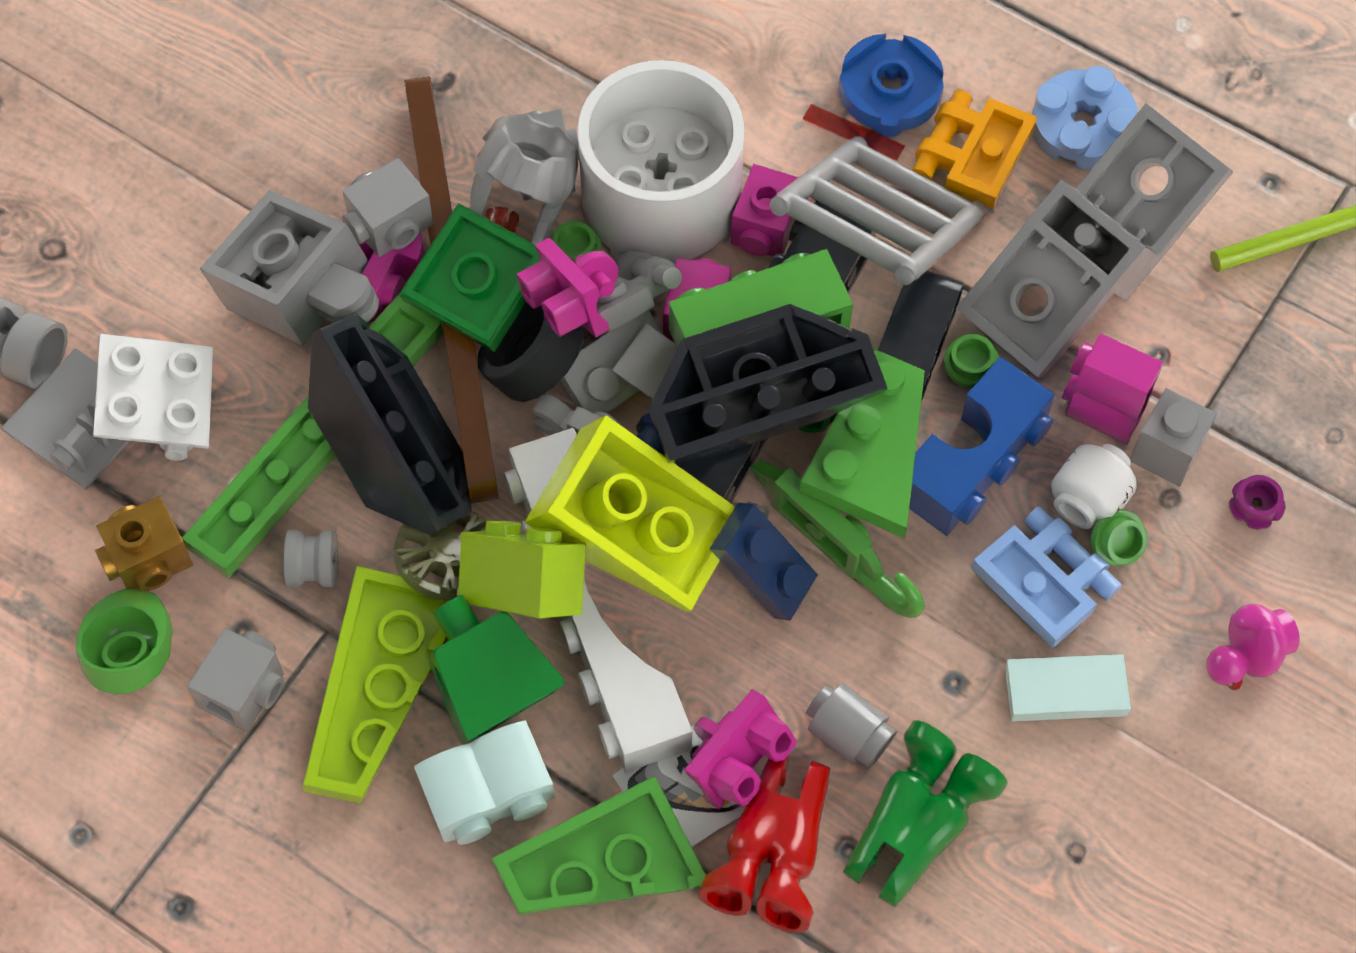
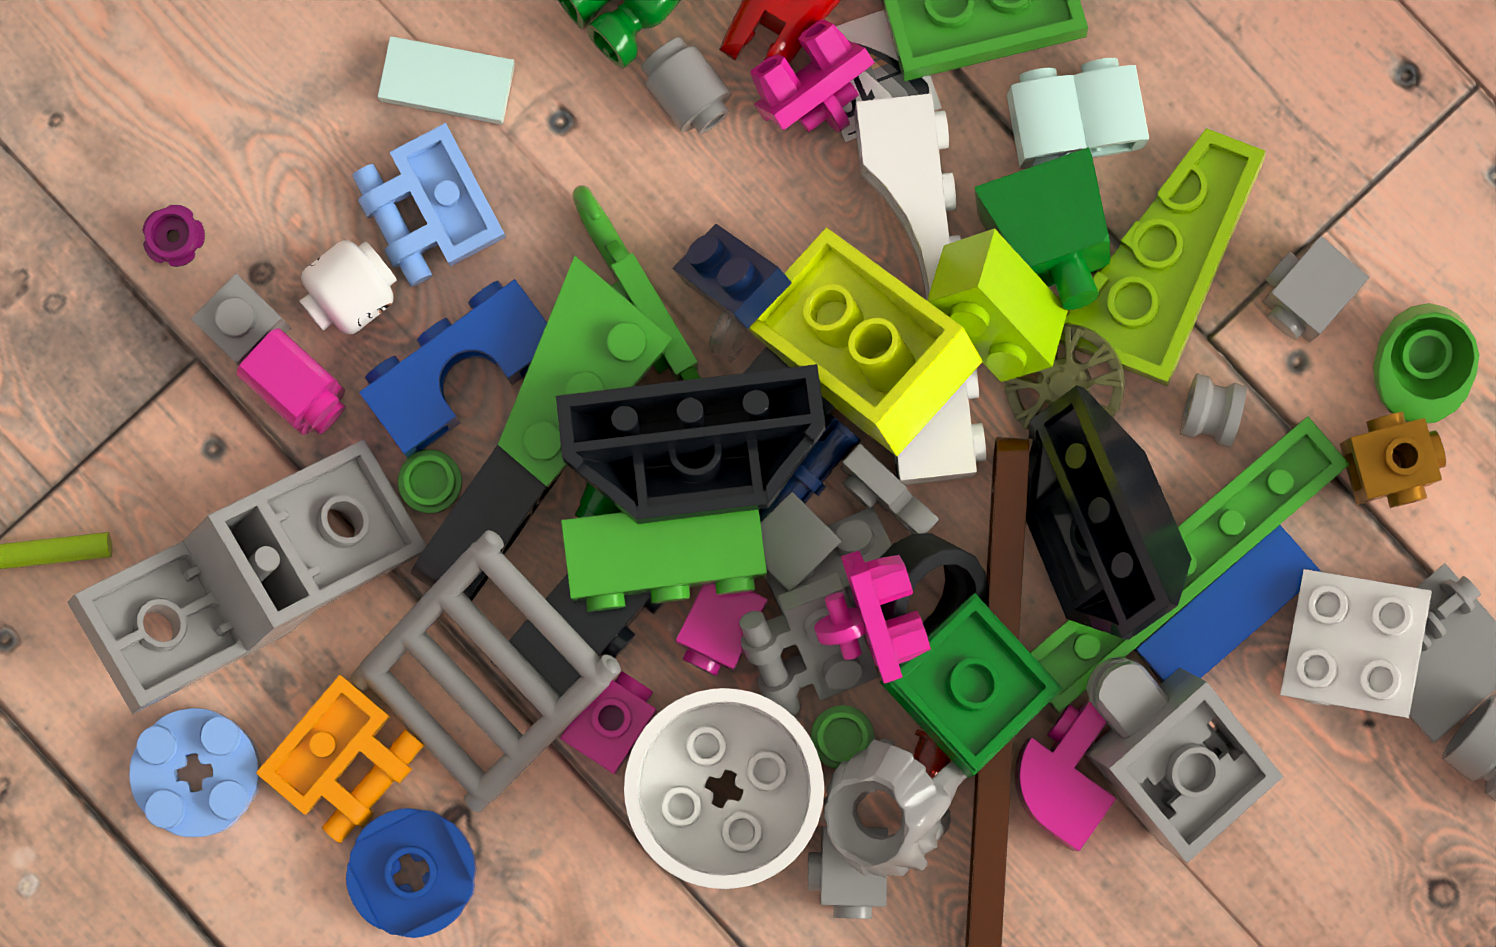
camera: 170 degrees left, 20 degrees up
(258, 414) = (1228, 608): none -> blue tile
(387, 208) = (1059, 794): light grey brick -> none
(849, 130) = (473, 827): clear red piece -> none
(1119, 538) = (337, 221): bright green plate -> none
(1257, 645) = (232, 70): dark pink animal -> none

